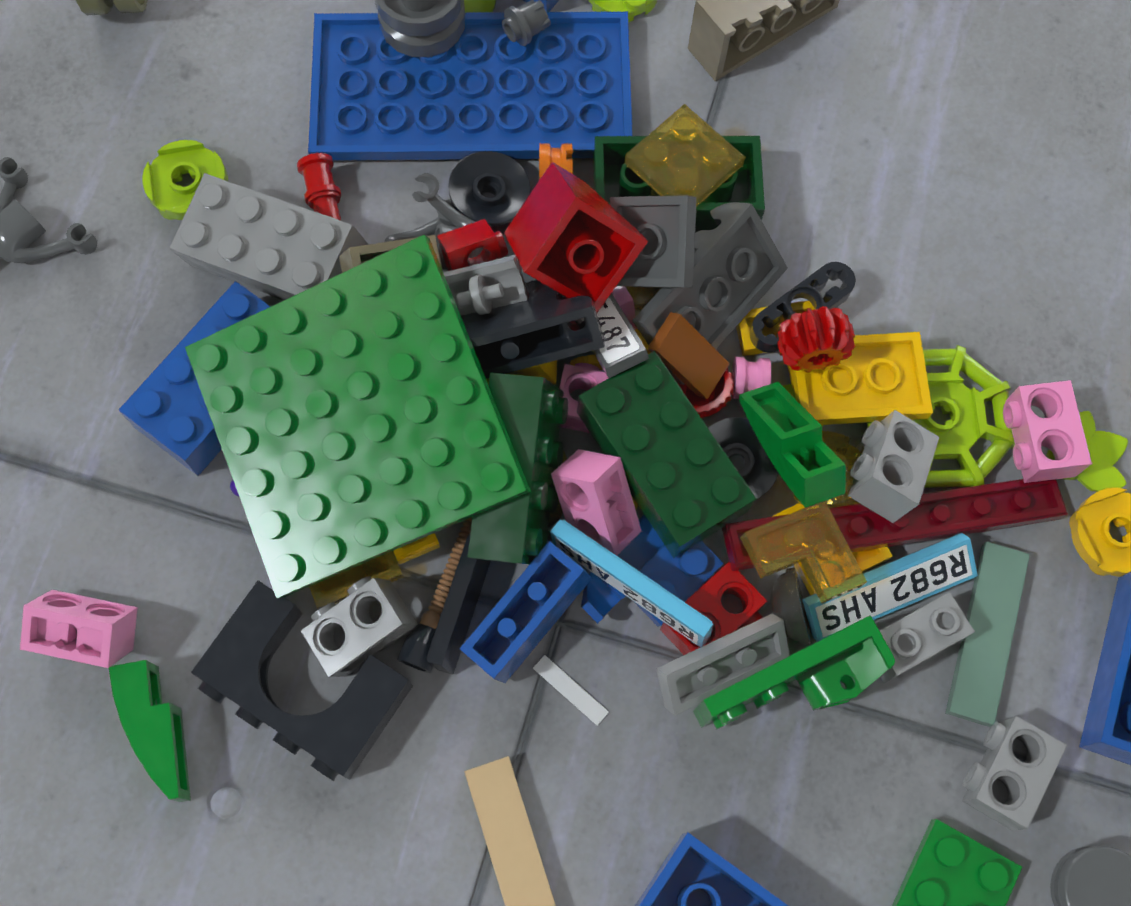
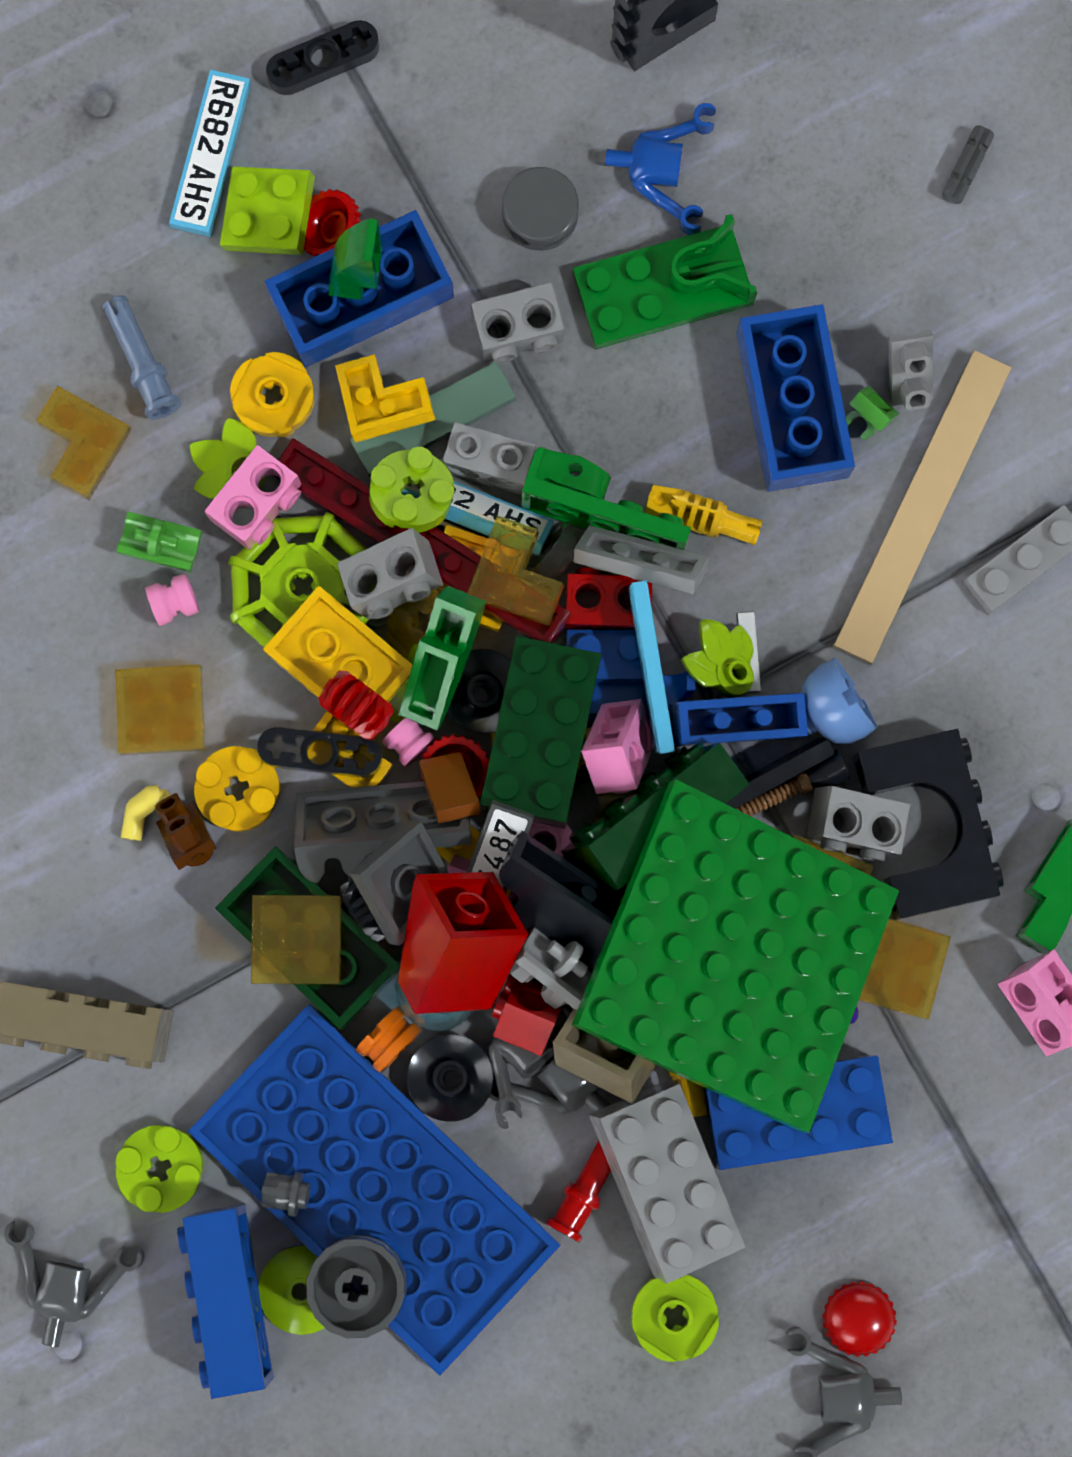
camera: 135 degrees left, 10 degrees up
(48, 293) = (859, 1319): none -> red hat
(221, 555) = (906, 970): none -> clear yellow plate
(462, 702) = (835, 705): none -> medium blue cylinder
(591, 660) = (720, 655): none -> lime plate
(714, 759) = (703, 514): none -> yellow hinge
(831, 176) = (184, 832): none -> reddish brown hips
(833, 222) = (224, 810): none -> yellow plate
(876, 171) = (138, 808): none -> light yellow arm
(936, 243) = (160, 709): none -> clear yellow plate
(972, 548) = (405, 511): none -> lime plate
(1015, 316) = (167, 600): none -> bright pink wheel
(1039, 592) = (377, 409): none -> yellow plate
(1067, 347) = (159, 542): none -> bright green hips

